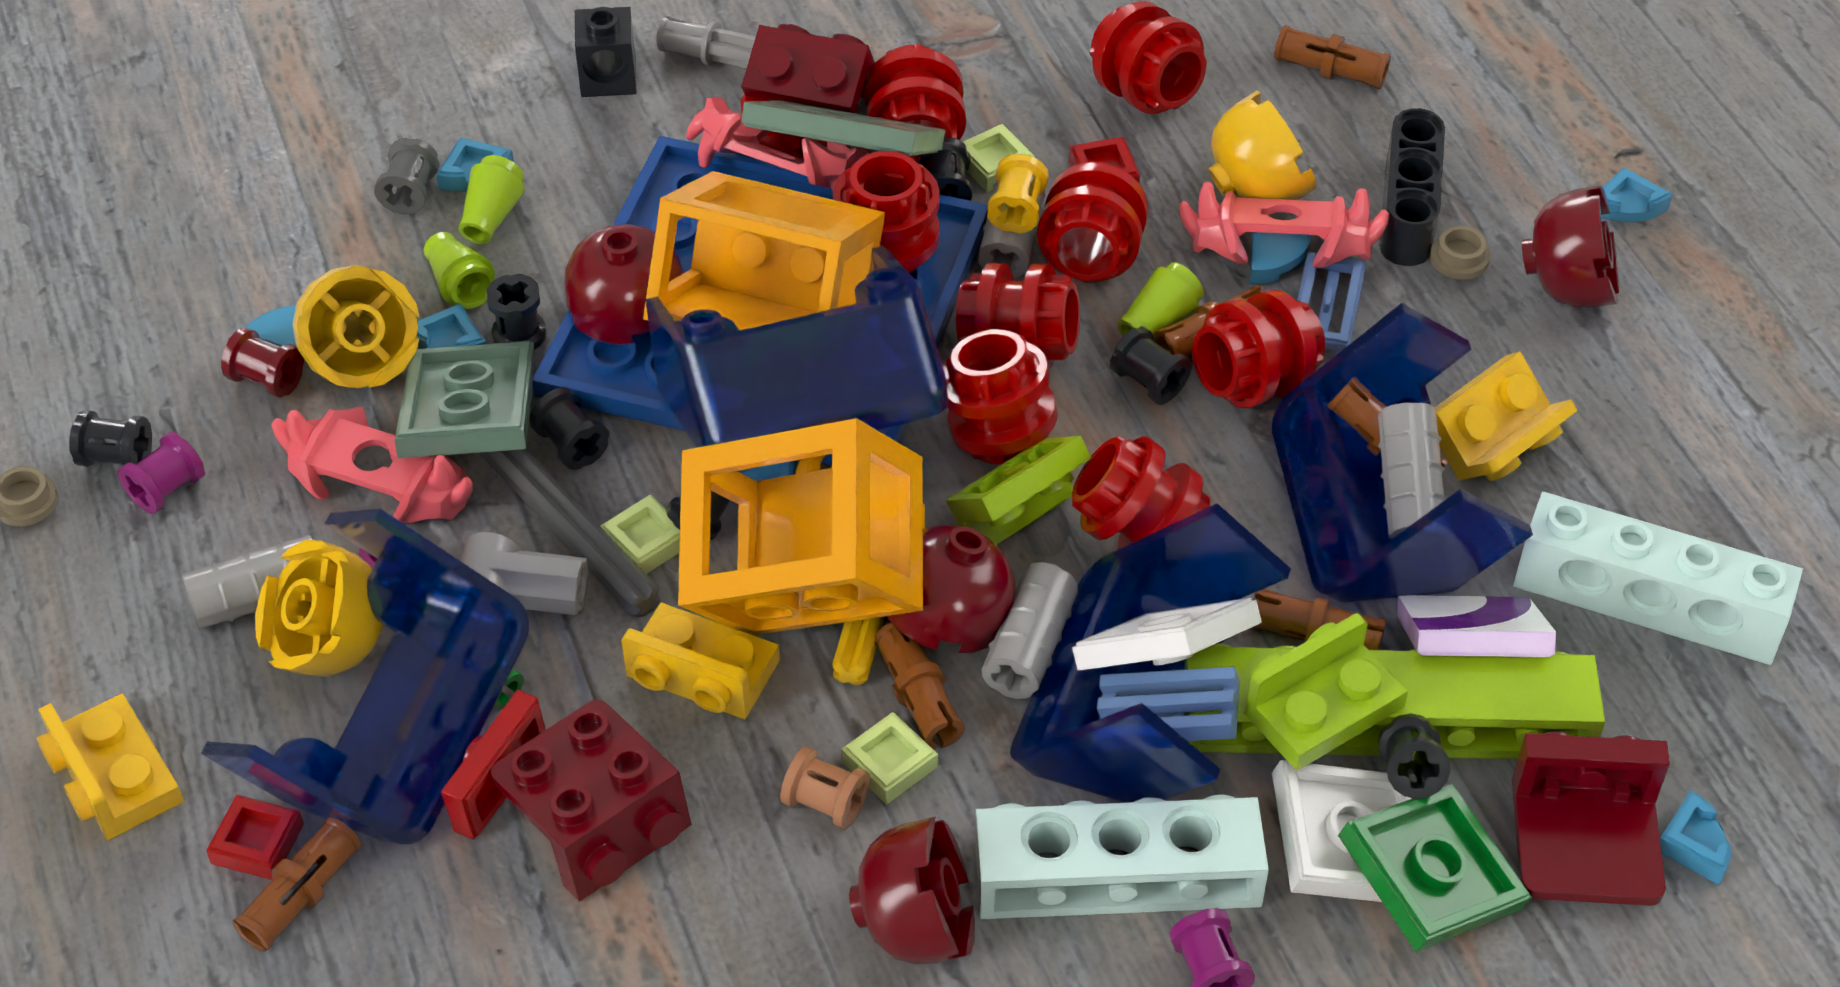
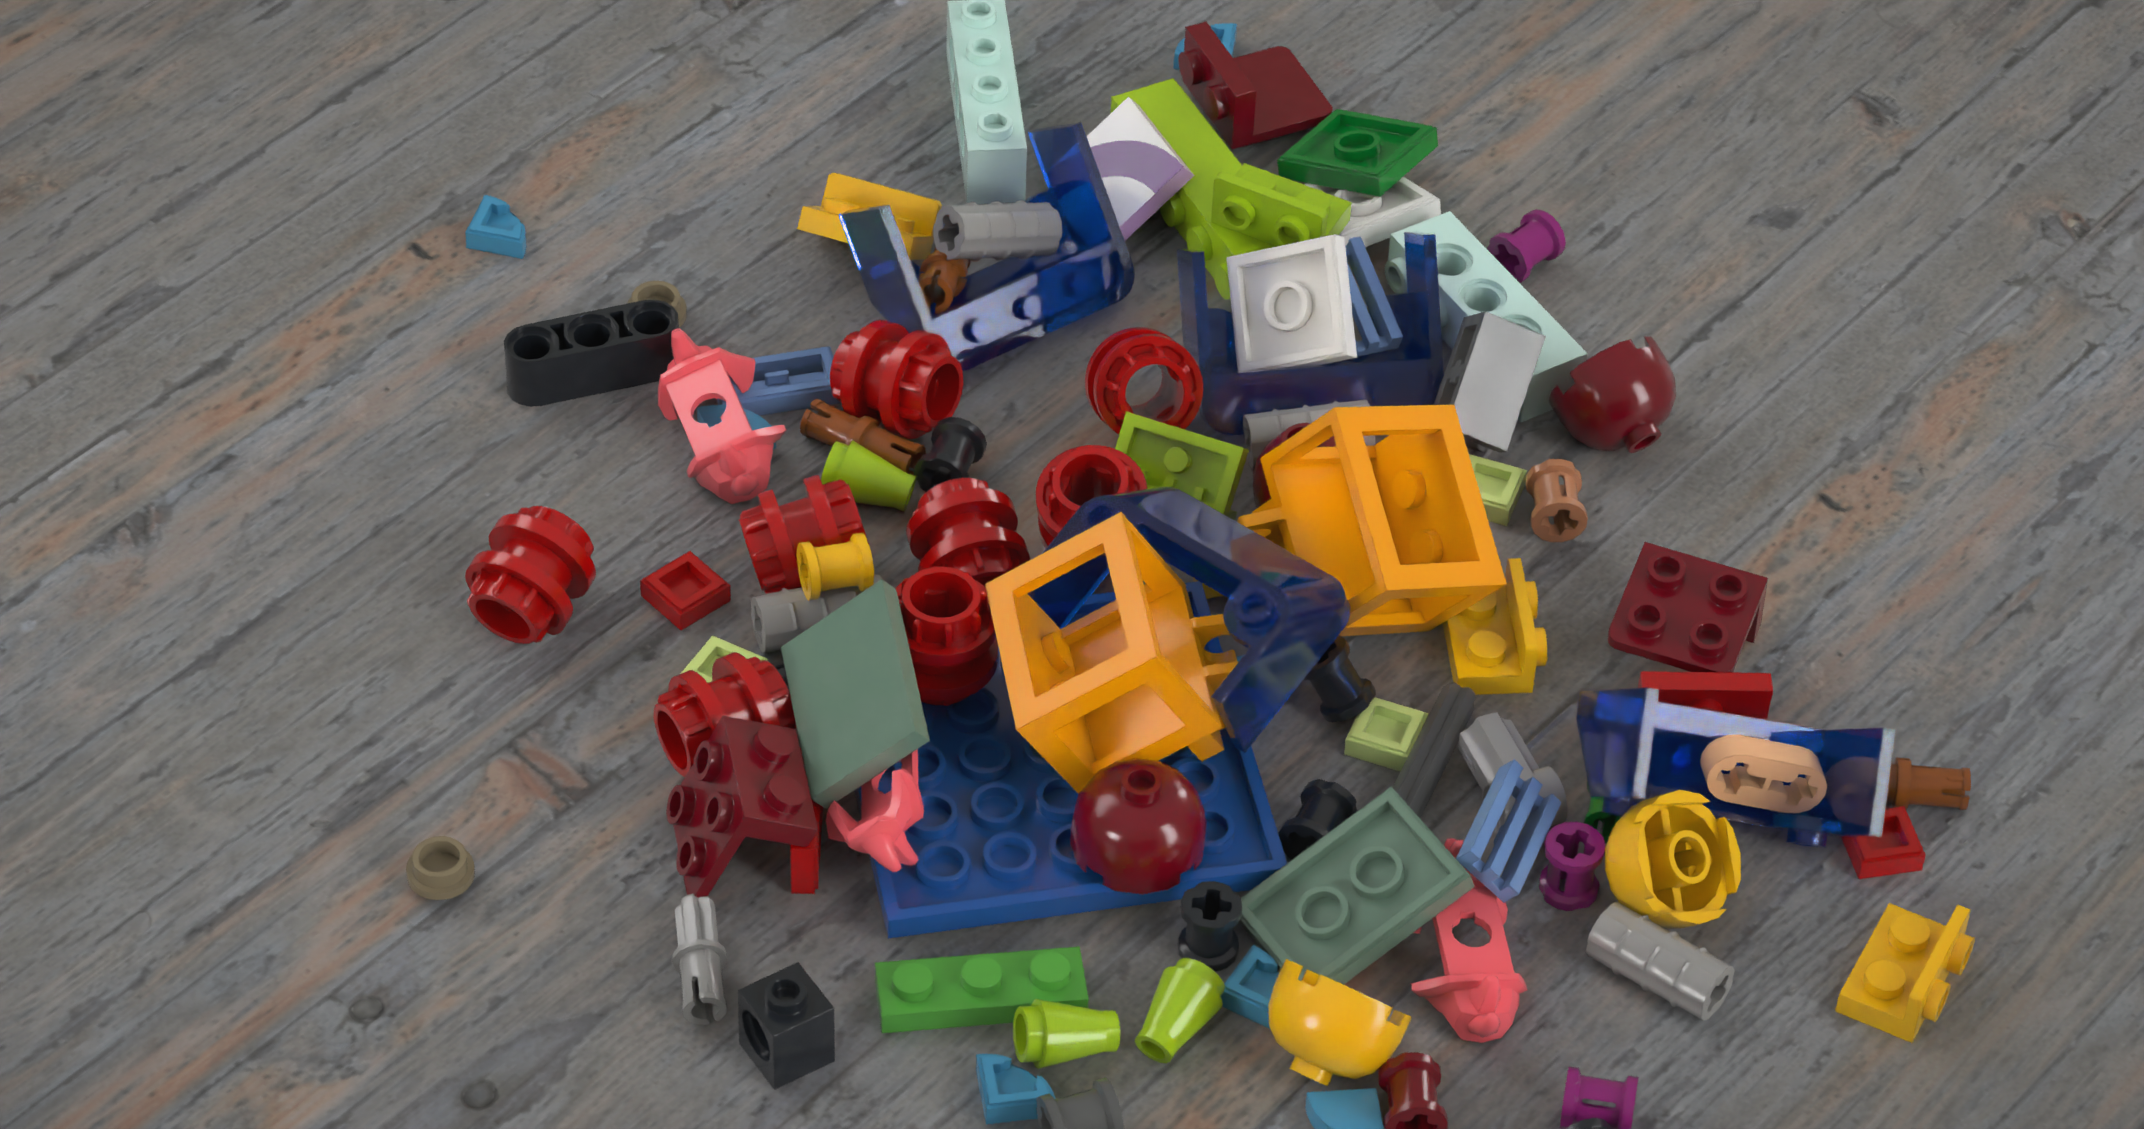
camera: 120 degrees left, 5 degrees down
(363, 737) = (1765, 770): none -> light nougat beam
(402, 476) = (1529, 843): none -> medium blue tile
(573, 184) = (975, 987): none -> bright green plate
(989, 765) = (1489, 378): none -> hinge
(1257, 153) = (633, 452): yellow cylinder -> none
(1302, 617) = (1160, 280): dark orange pin -> none
(1332, 56) = (416, 468): dark orange pin -> none
(1430, 761) = (1289, 159): black bush -> none
(1574, 249) = (626, 215): dark red cylinder -> none

